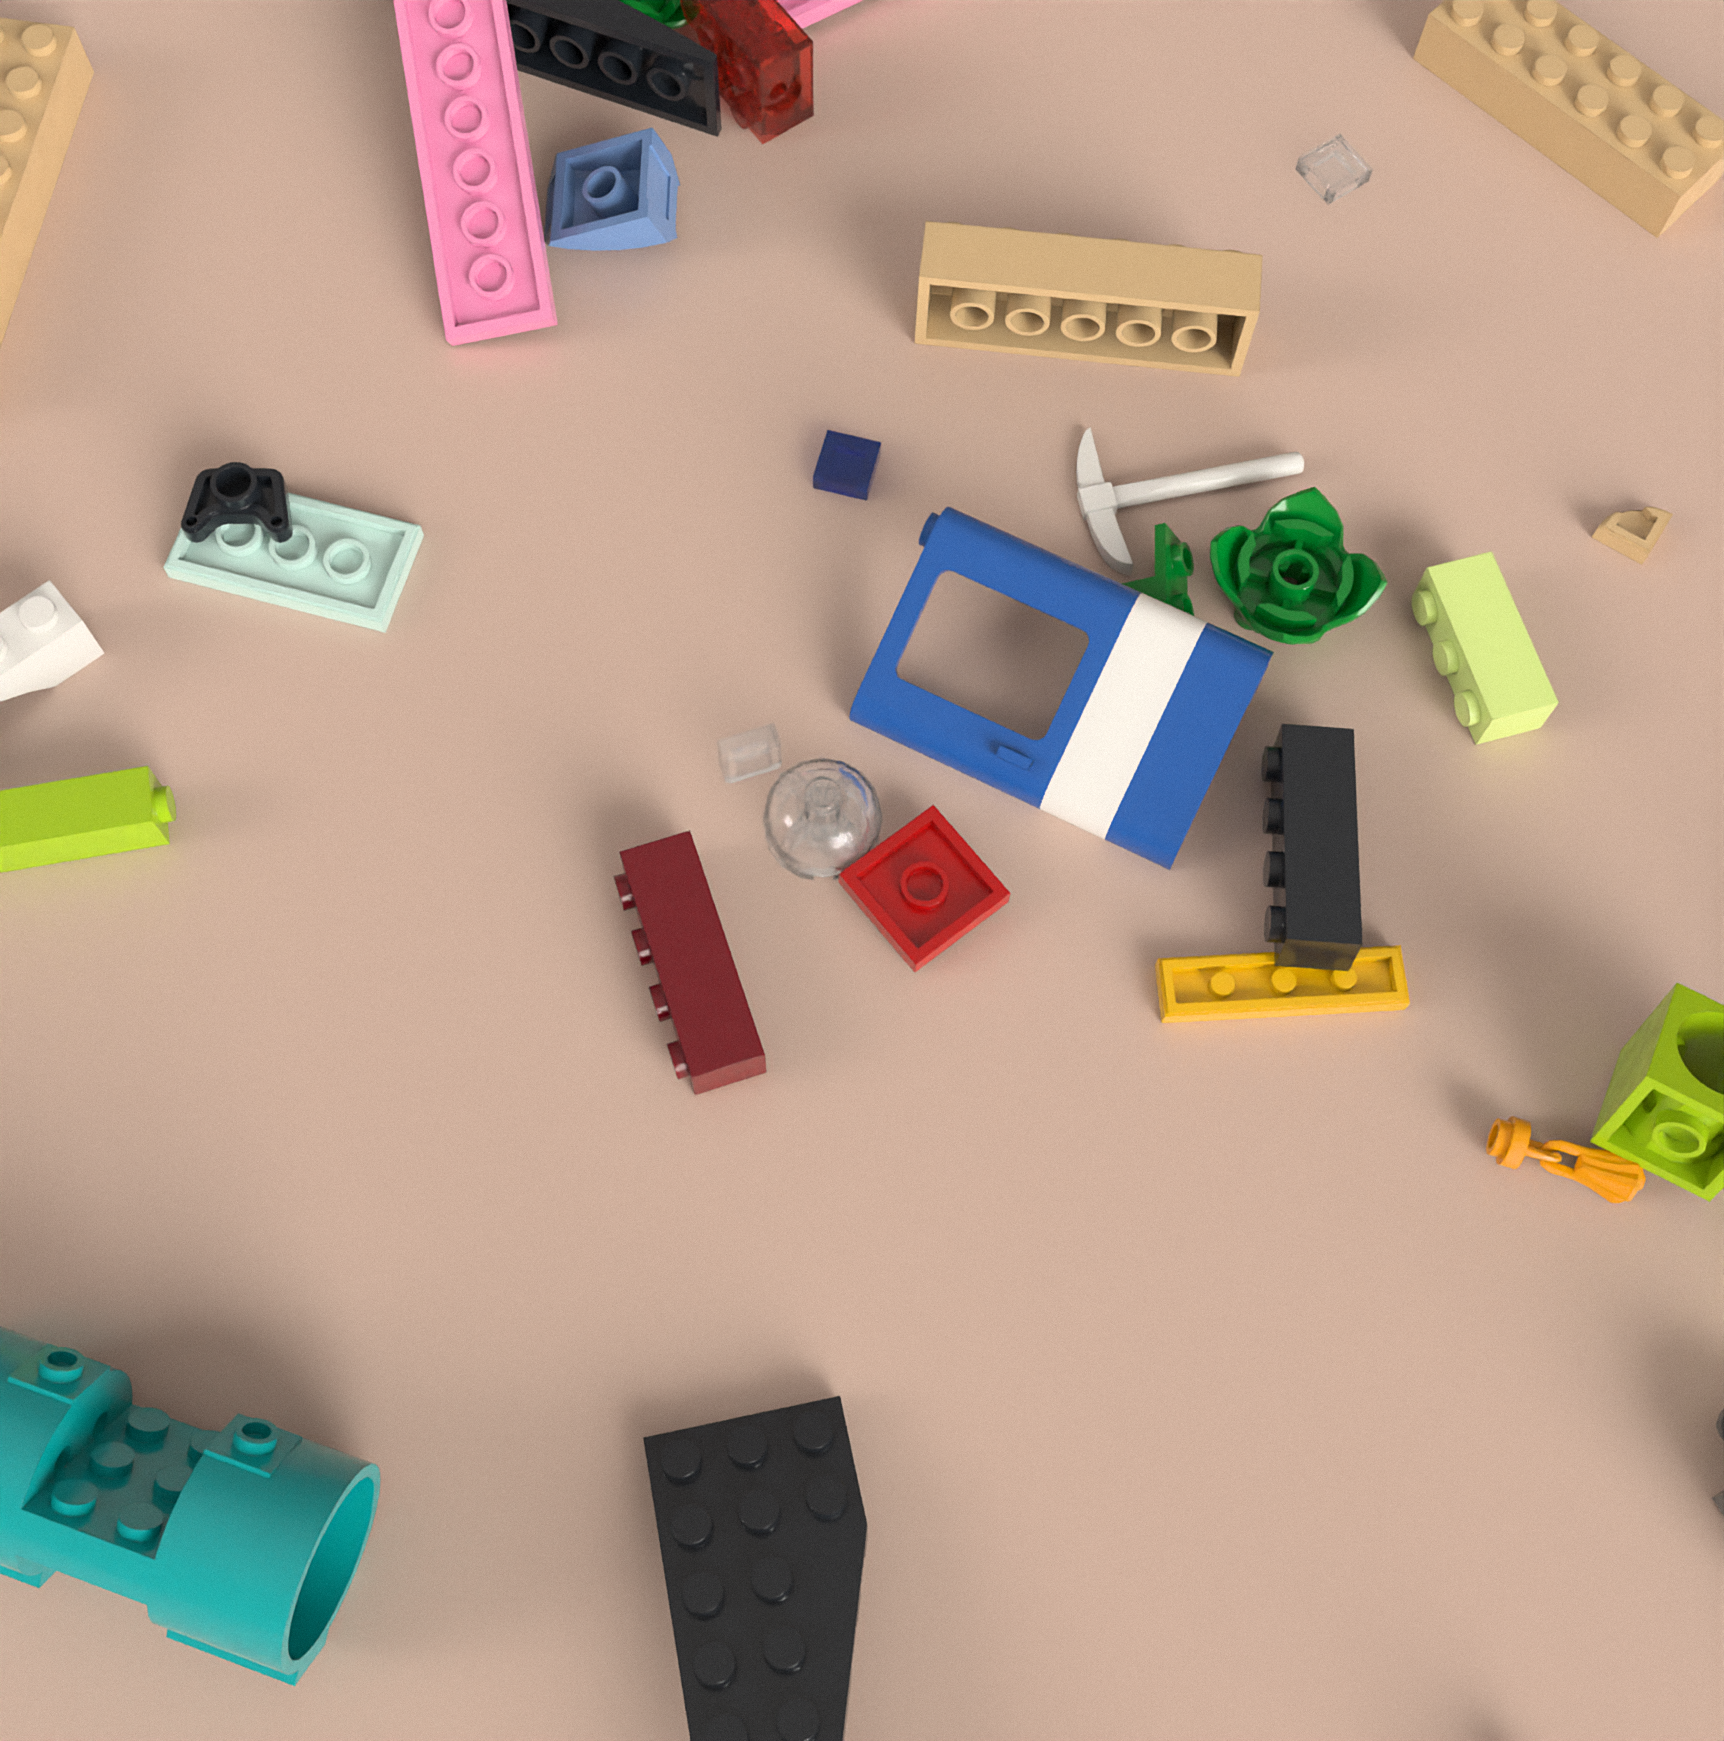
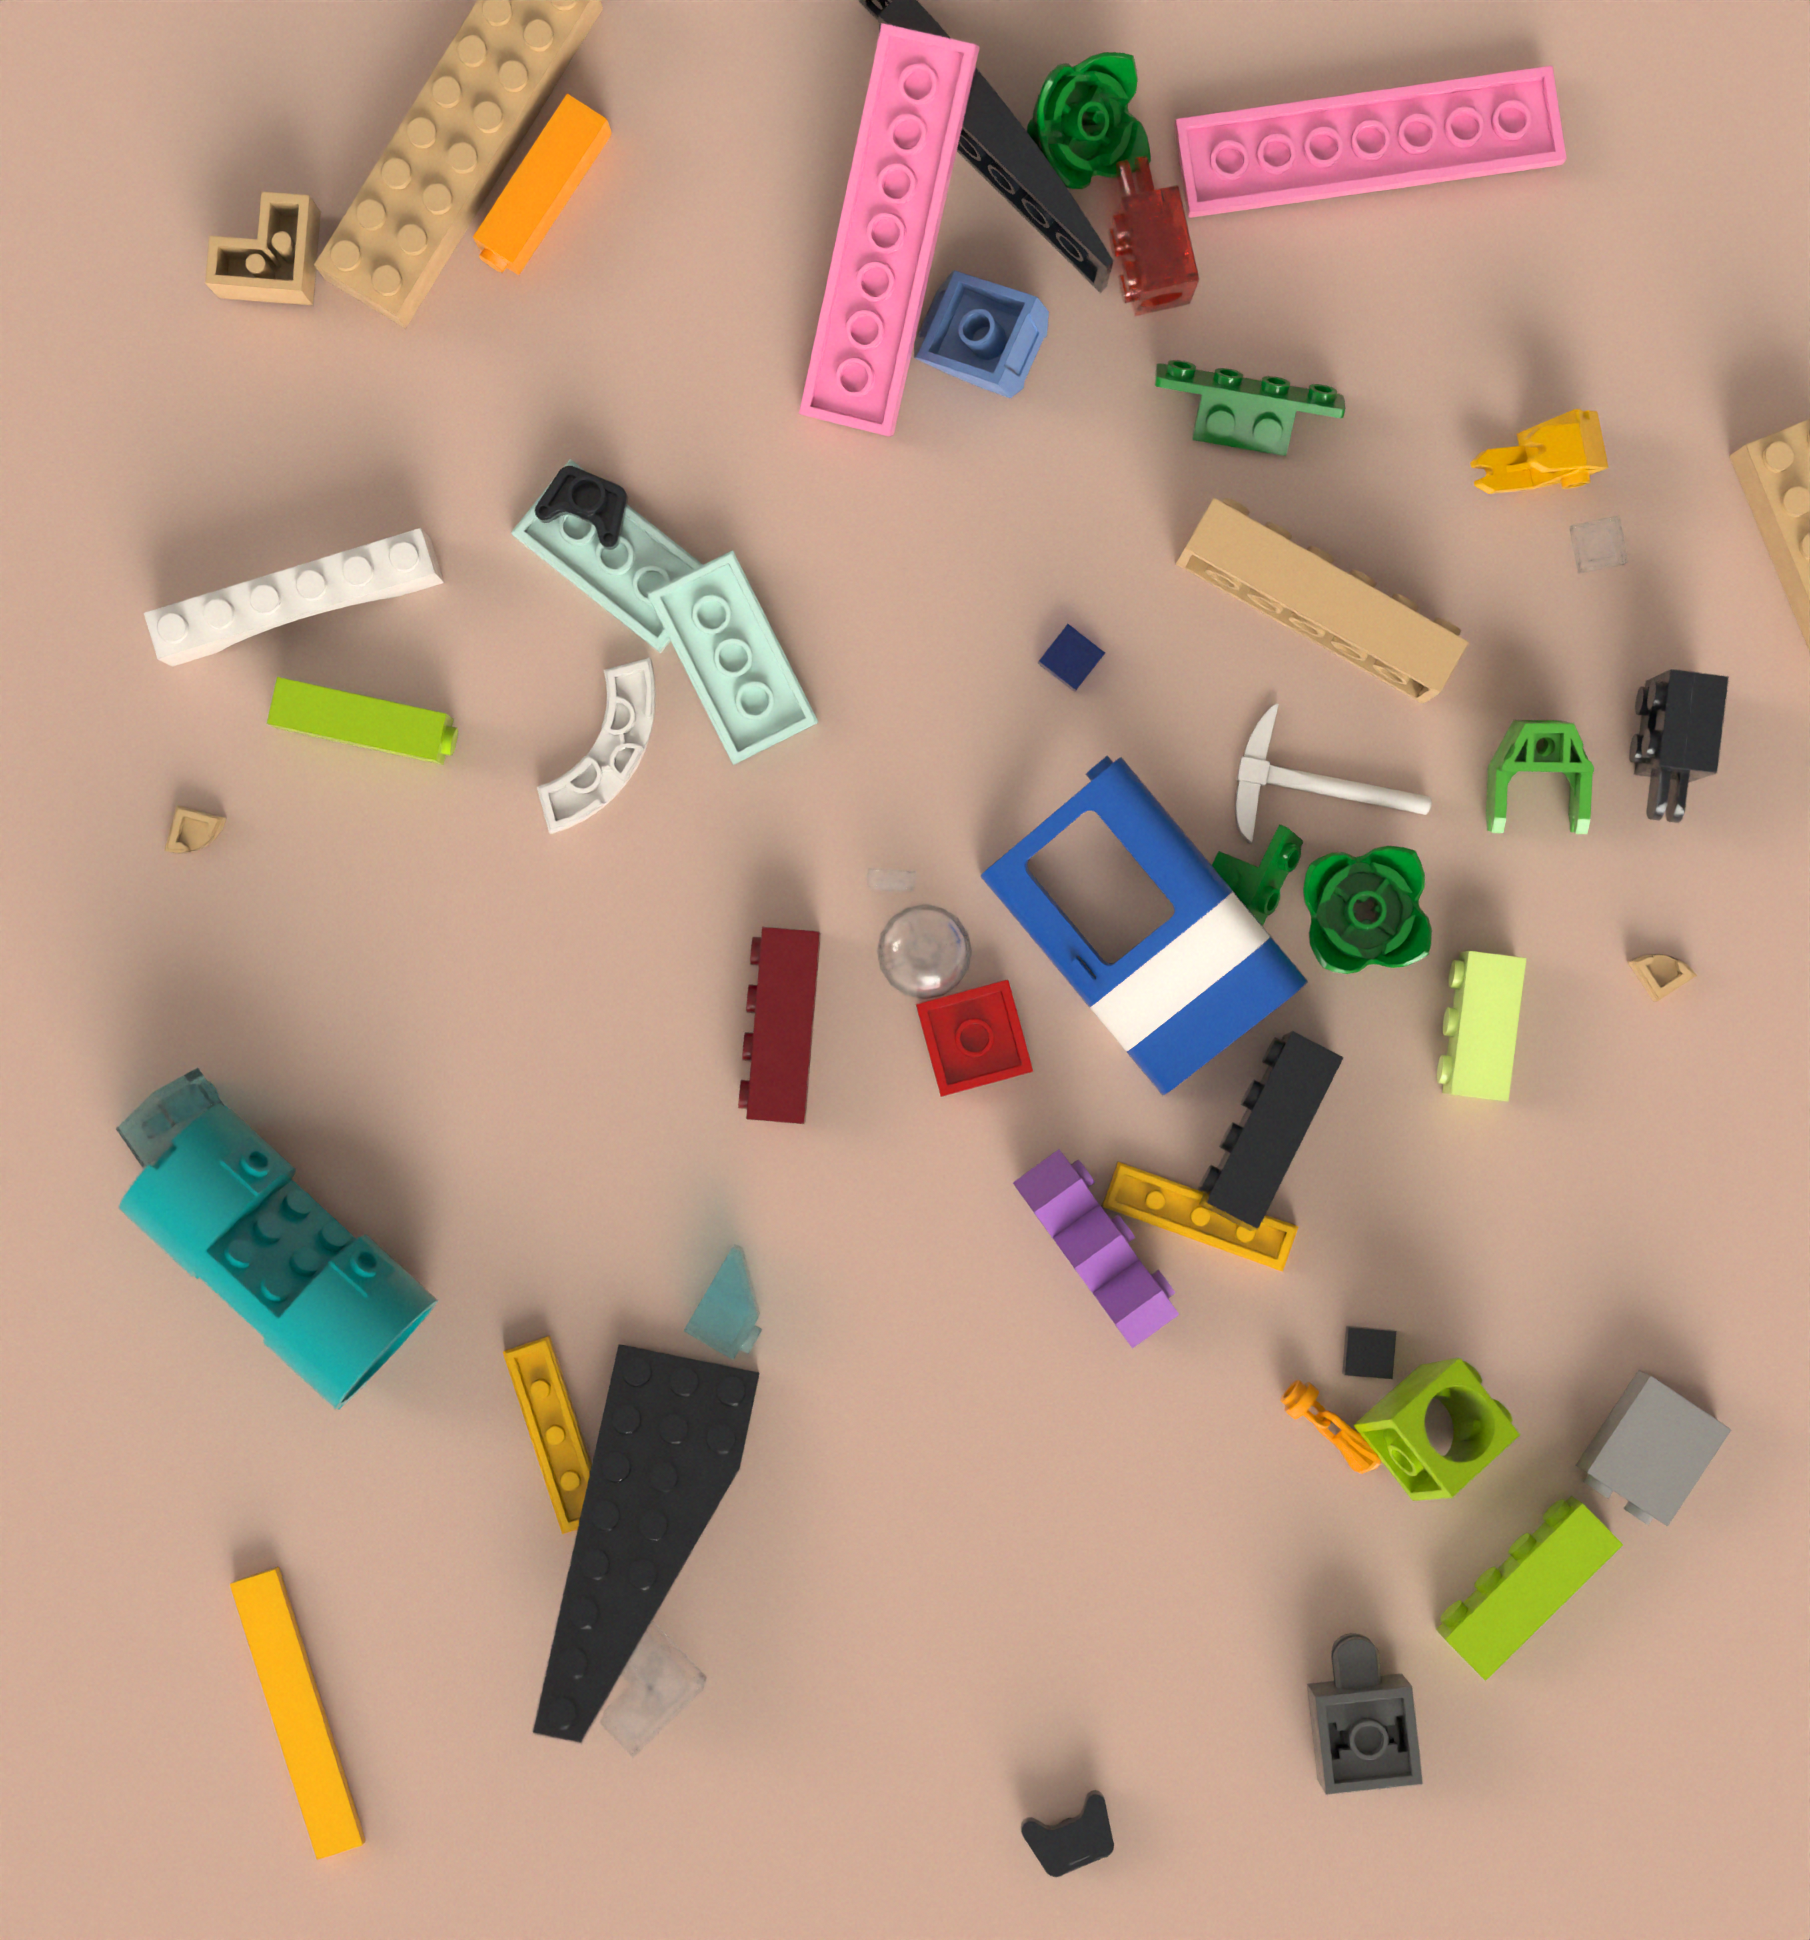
camera: 20 degrees right, 20 degrees up
(80, 230) = (541, 186): none -> light orange brick
(370, 758) = (613, 756): none -> white tile
(469, 597) = (732, 657): none -> light aqua tile
(599, 1593) = (551, 1426): none -> yellow tile
(765, 1329) = (728, 1309): none -> clear light blue slope
(916, 177) = (1247, 410): none -> green bracket
(1184, 1061) = (1097, 1247): none -> medium lavender brick
(1246, 102) = (1548, 454): none -> yellow piece
(1389, 352) = (1560, 753): none -> bright green piece
(1519, 283) = (1677, 736): none -> black brick
(1557, 1055) = (1369, 1352): none -> black tile

